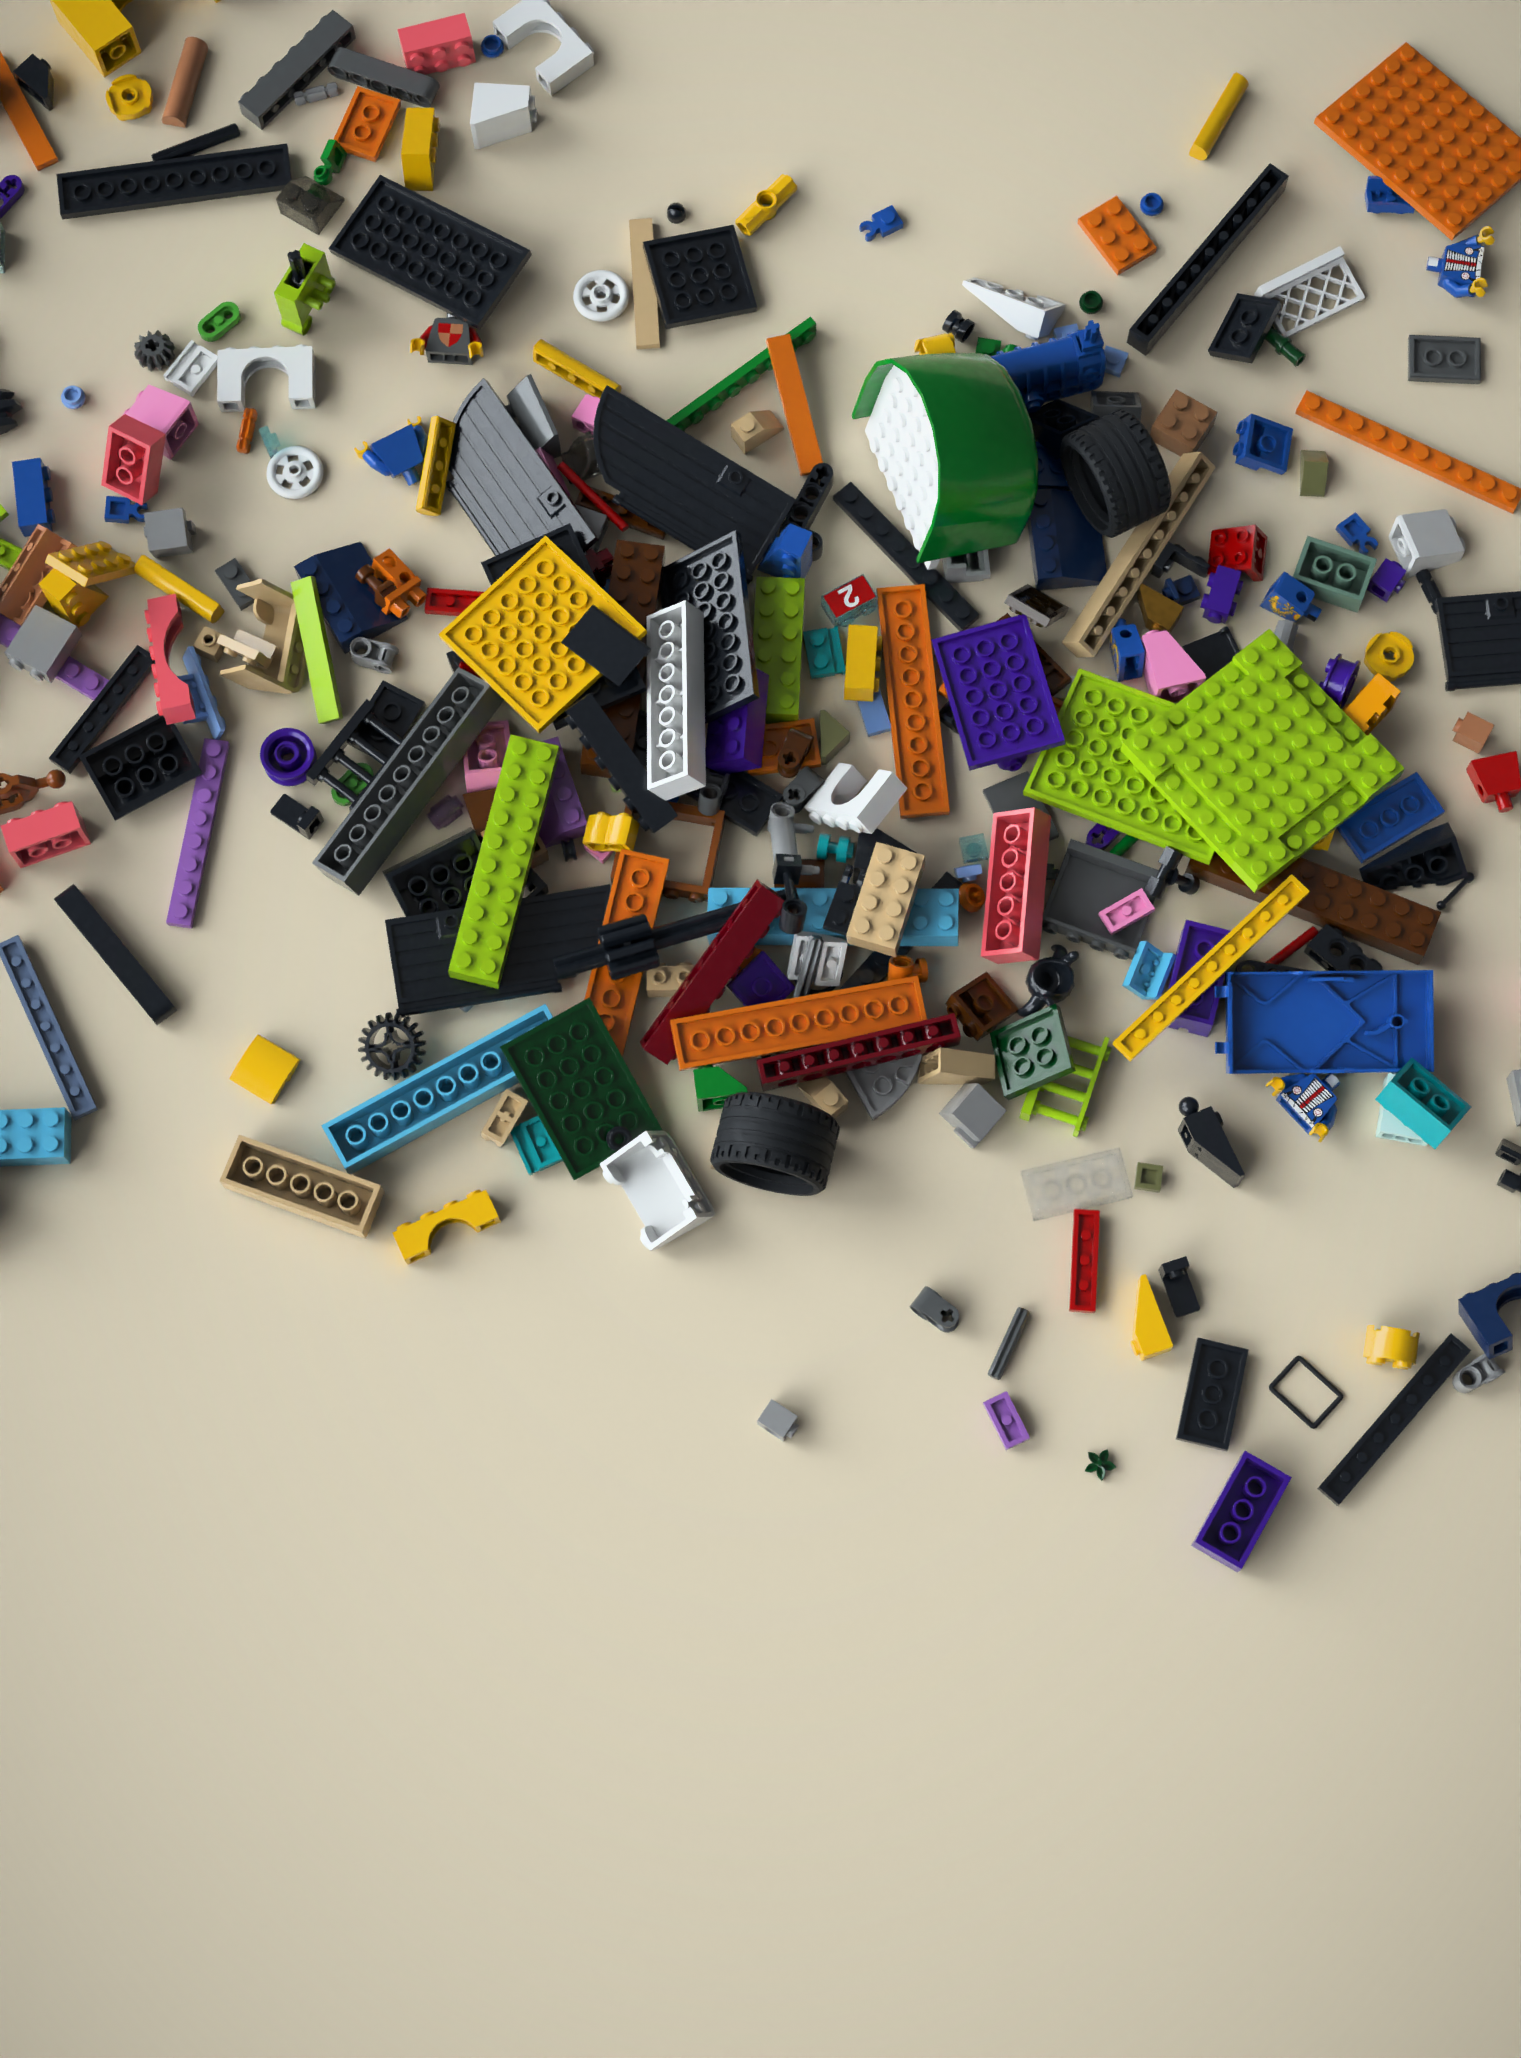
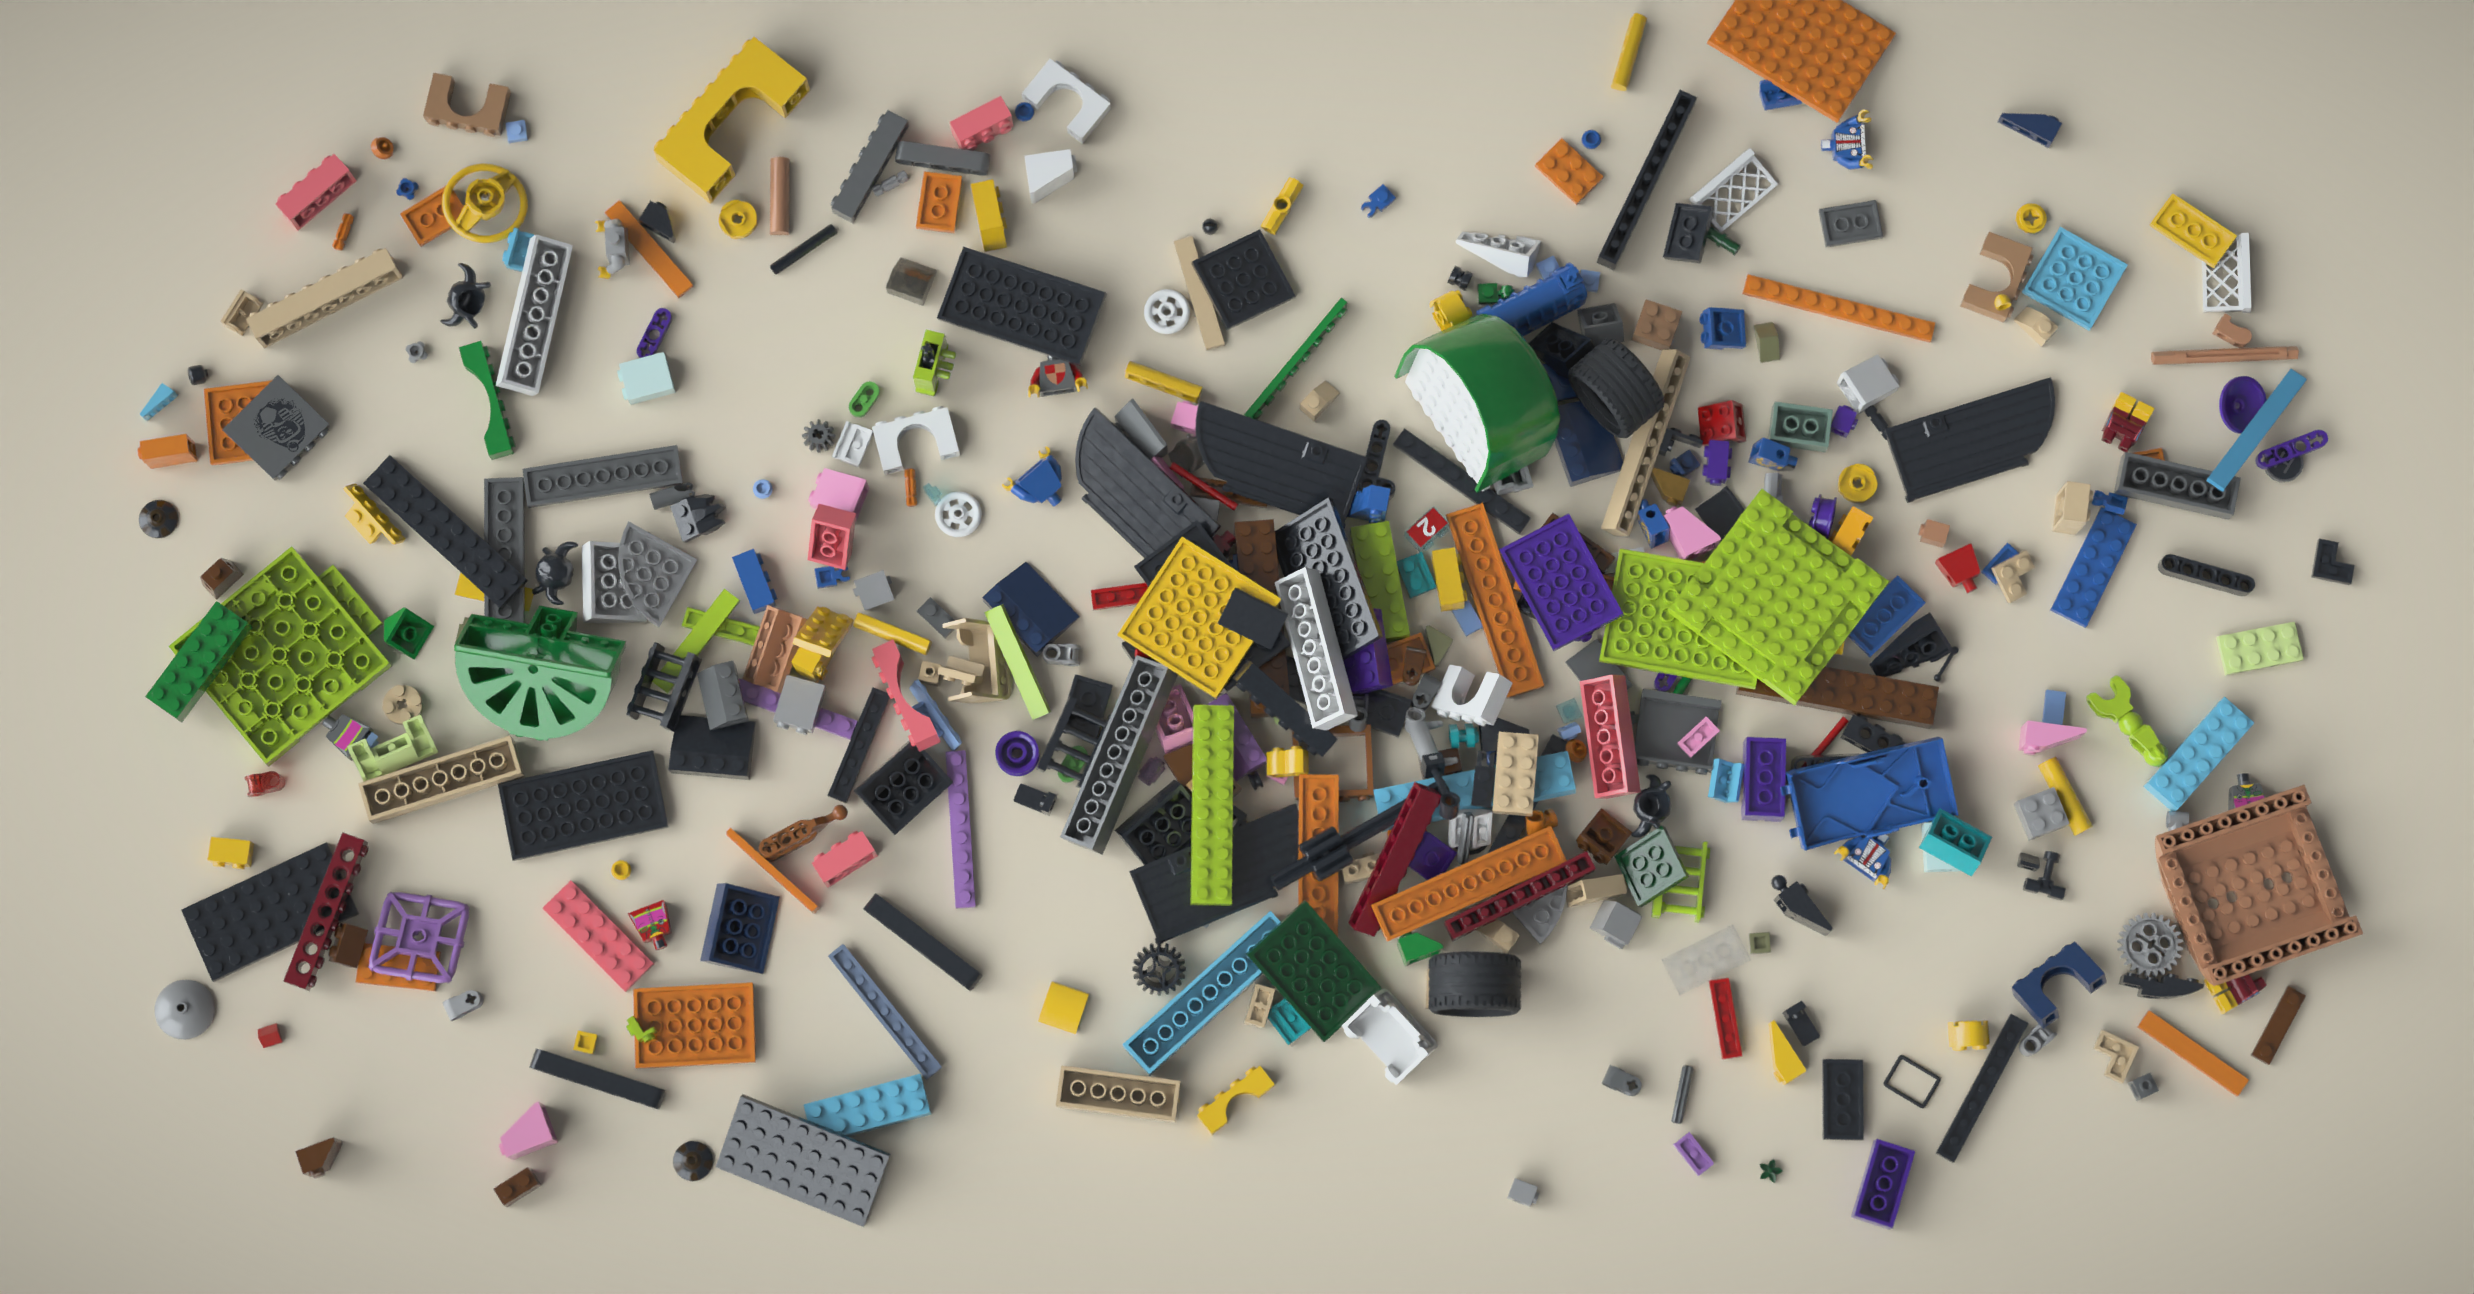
camera: 15 degrees left, 5 degrees up
(173, 181) = (795, 285): black plate -> none
(333, 159) = (919, 238): green plate -> none
(398, 585) = (1068, 593): orange hips -> none
(435, 466) = (1072, 487): yellow brick -> none
(627, 1138) = (1357, 1003): black plate -> none
(794, 403) = (1345, 373): orange tile -> none
(1033, 402) = (1533, 333): blue plate -> none
(1036, 605) = (1575, 505): dark brown plate -> none
(1091, 302) = (1560, 234): dark green plate -> none
(1169, 875) = (1725, 703): black bar -> none
(1210, 967) = (1774, 772): yellow plate -> none
(1355, 531) = (1810, 385): blue plate -> none

